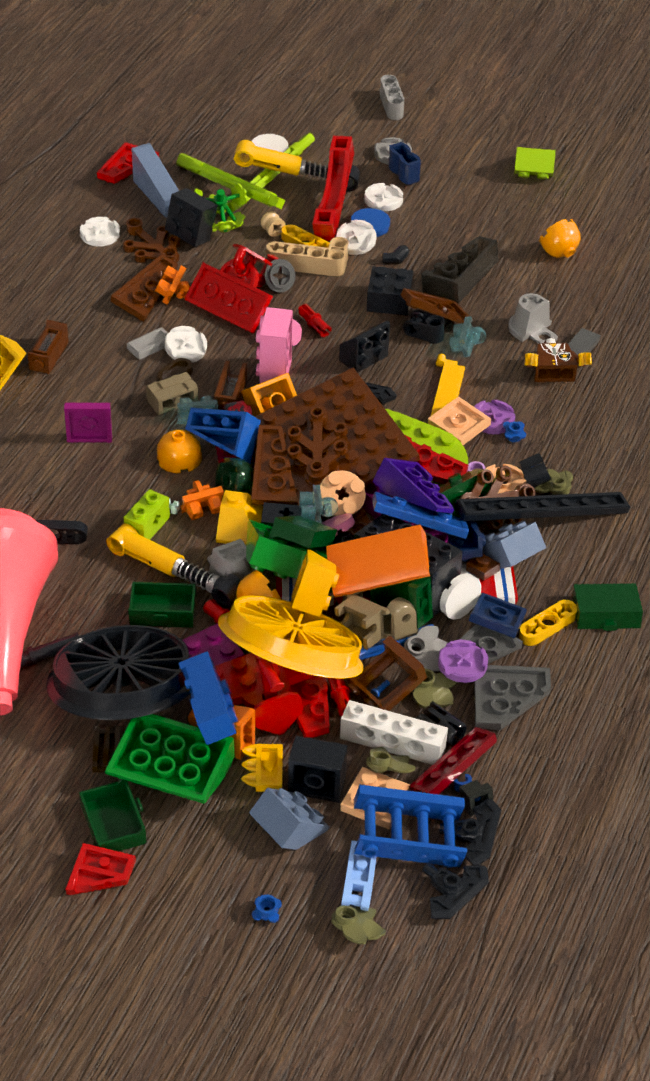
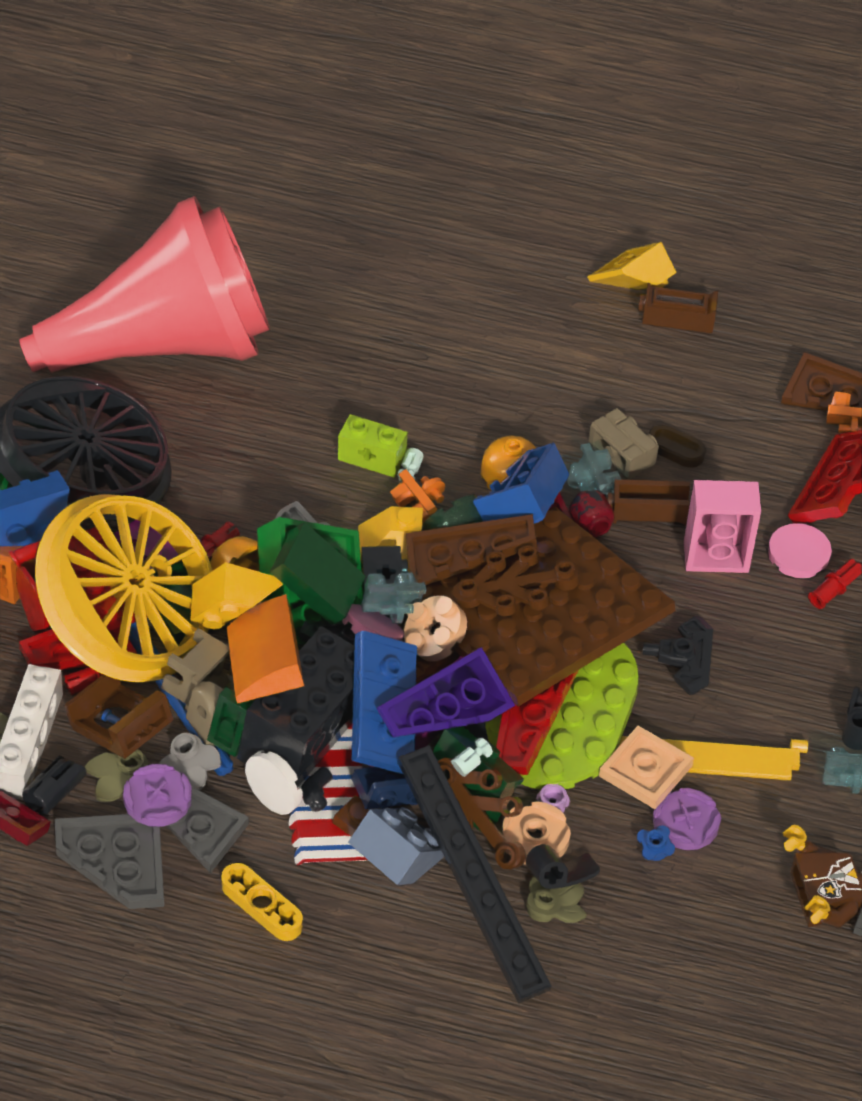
camera: 80 degrees right, 5 degrees up
(45, 651) = (123, 378): black pin -> none
(70, 527) = (332, 363): black beam -> none
(88, 422) = (528, 359): magenta plate -> none
(128, 541) = (296, 473): piece -> none
(147, 343) = (731, 413): light grey tile -> none
(162, 604) = (225, 484): dark green container -> none
(185, 343) = (734, 447): white tile -> none
(269, 394) = (642, 544): light orange slope -> none
(366, 347) = (780, 643): black slope -> none
(470, 481) = (470, 758): none -> light aqua piece
(498, 615) = (255, 834): dark blue tile -> none
(607, 606) = (302, 970): dark green container -> none

